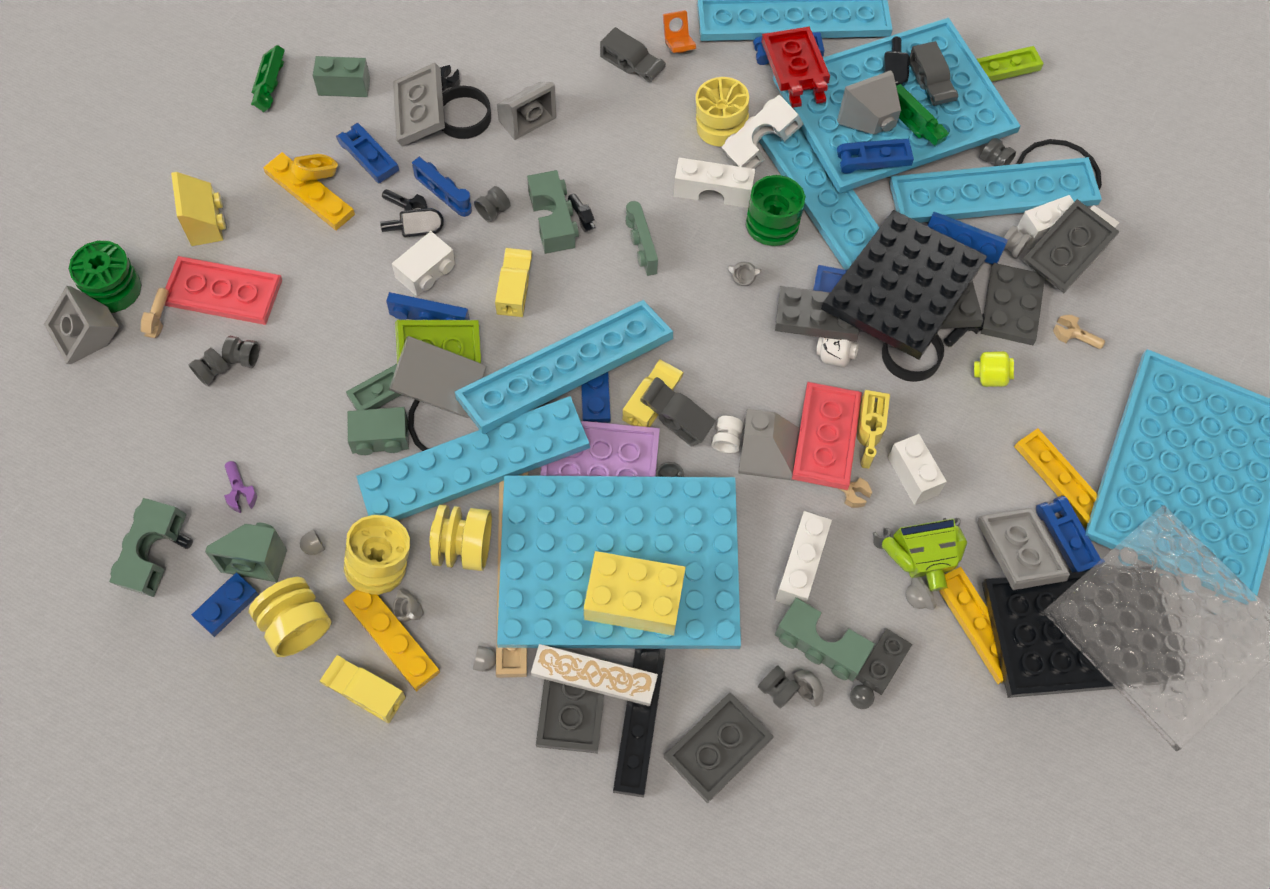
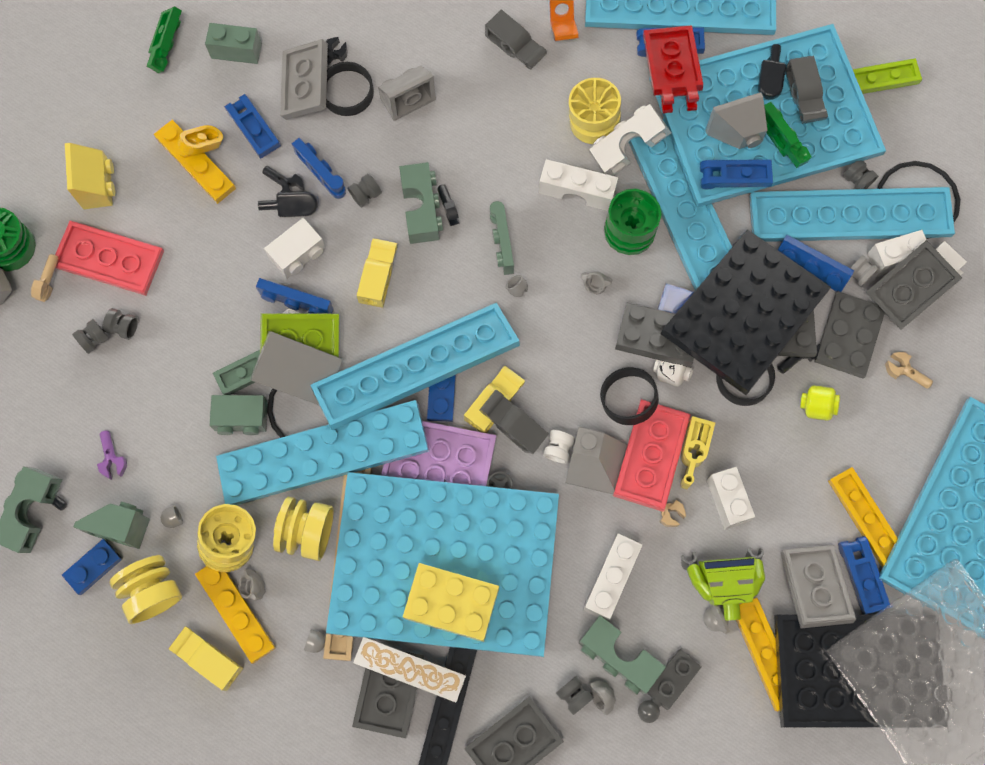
camera: 10 degrees right, 10 degrees up
(663, 283) = (517, 286): none -> light grey hinge
(793, 356) = (626, 372): none -> black tyre

